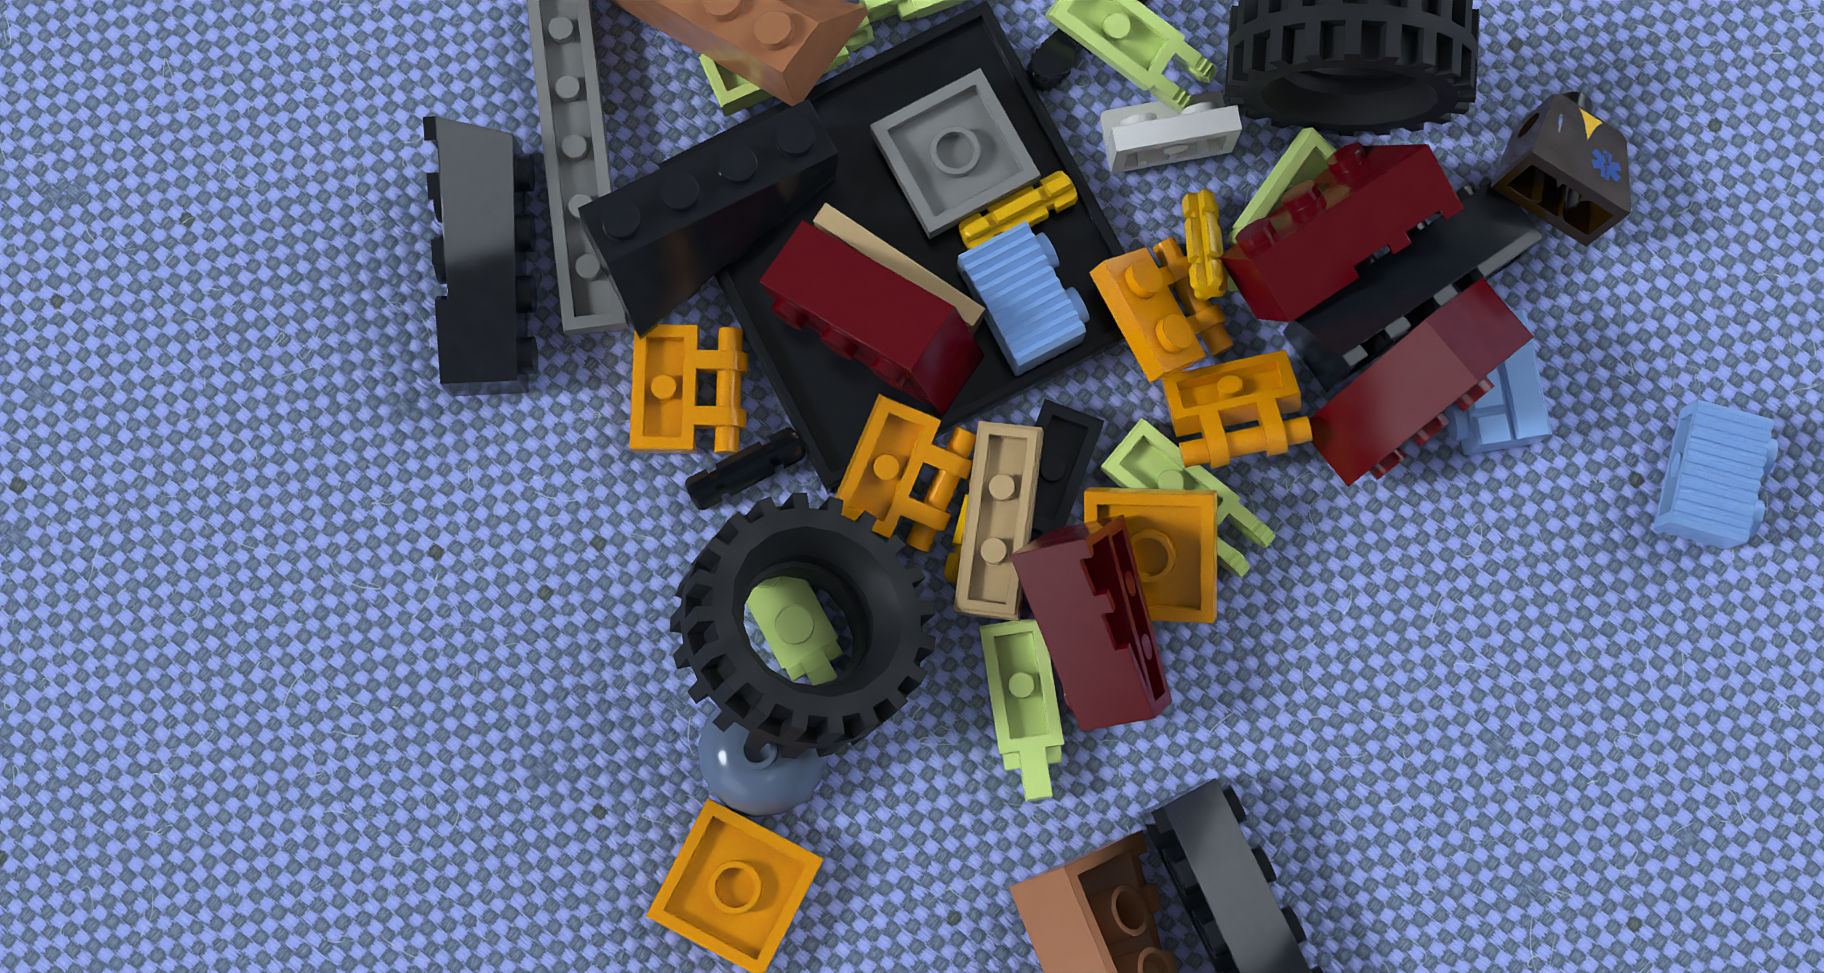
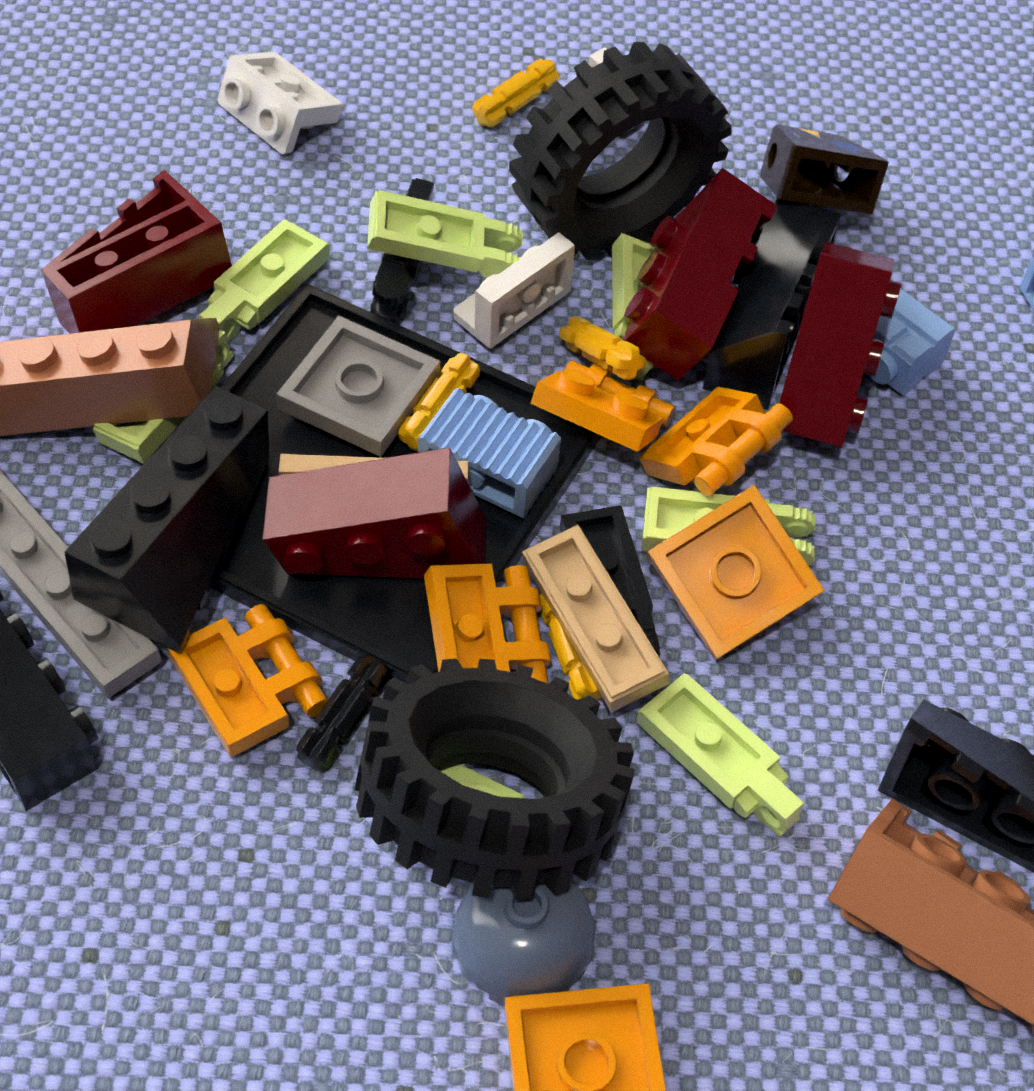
camera: 40 degrees left, 25 degrees down
(1095, 622) = (735, 636): dark red wedge -> none

